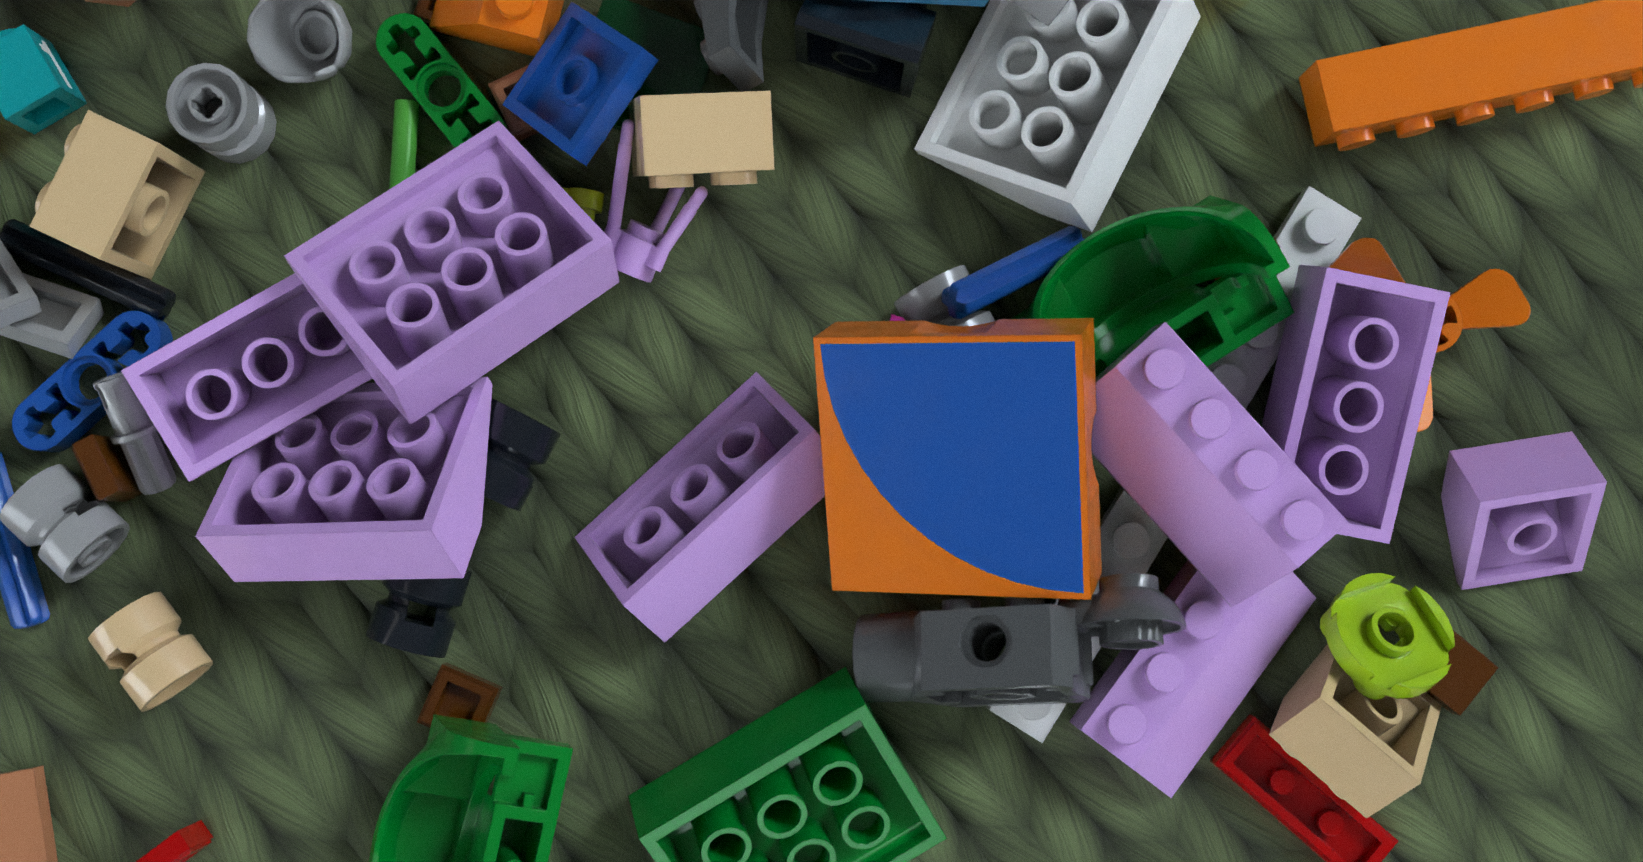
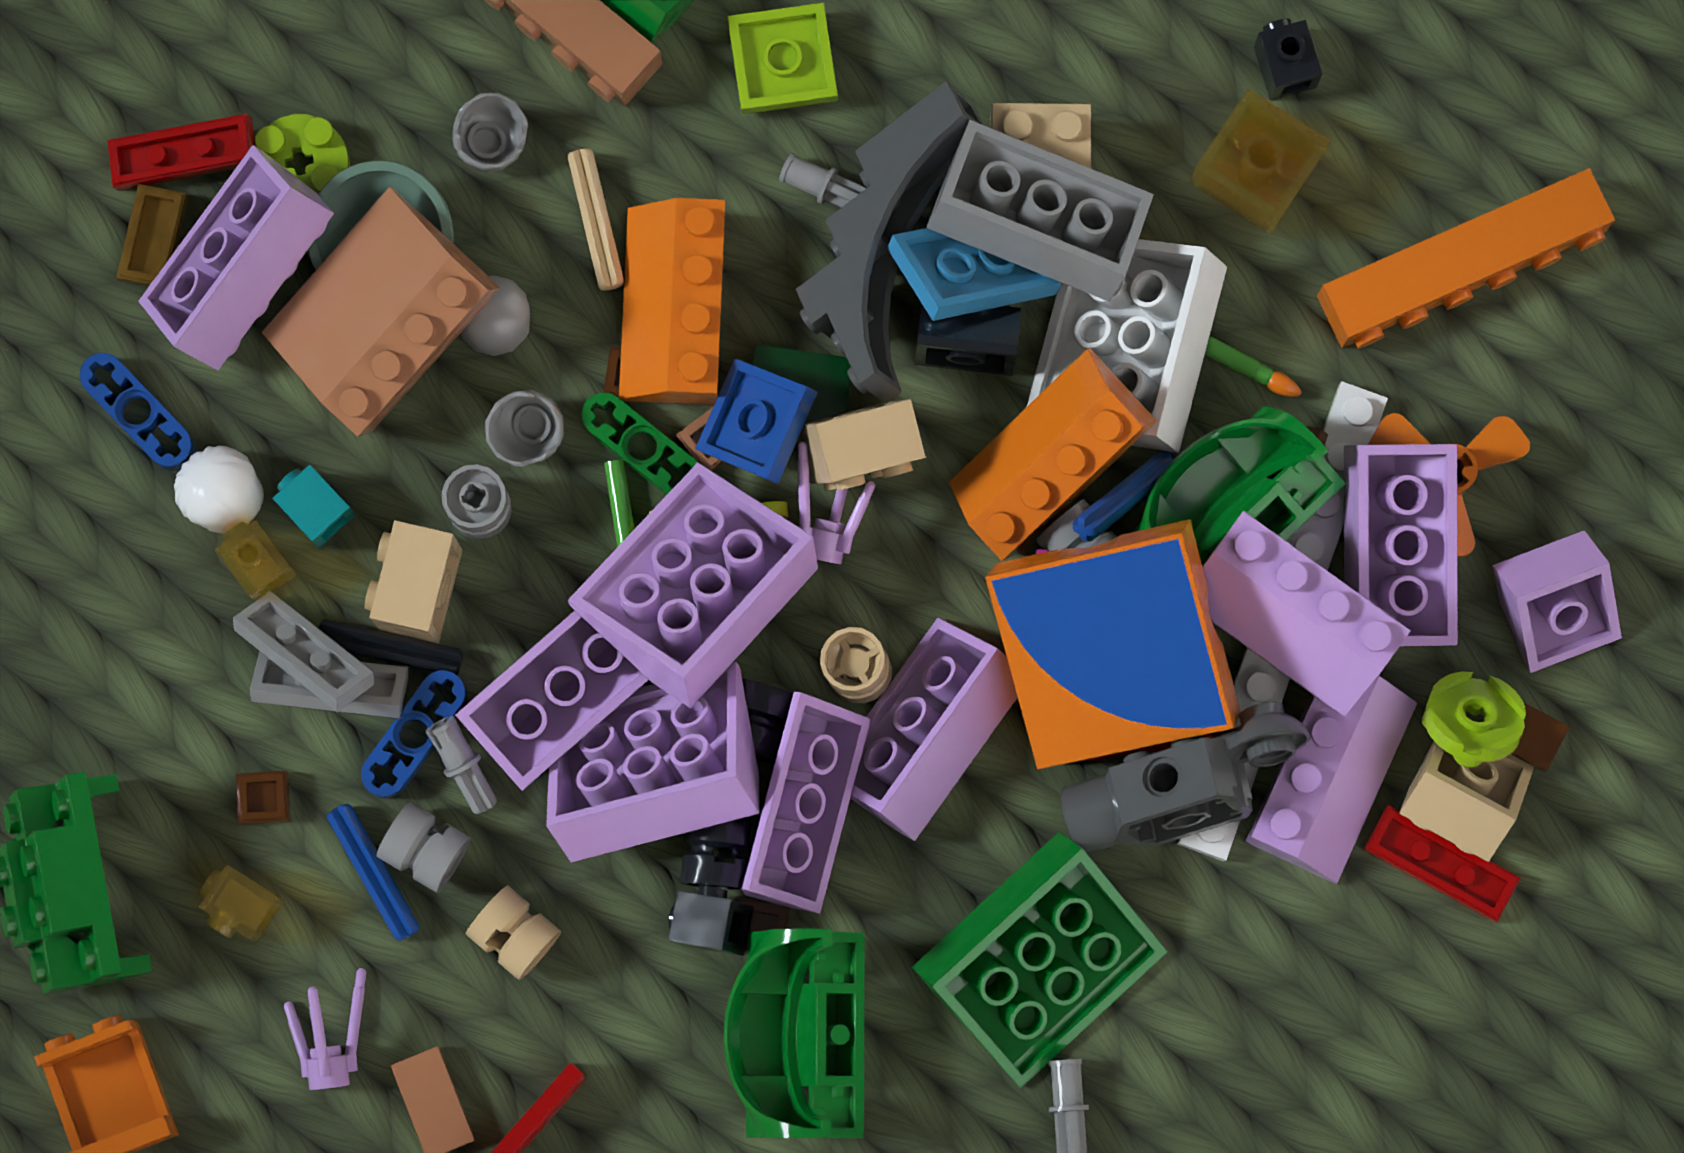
camera: 10 degrees left, 5 degrees down
(106, 469) = (445, 799): reddish brown tile -> none
(392, 691) = (710, 921): none -> black brick
(532, 573) = (806, 804): none -> lavender slope
(638, 410) = (856, 665): none -> tan wheel
(934, 200) = (1049, 455): none -> orange slope
(1202, 148) = (1236, 360): none -> bright green piece

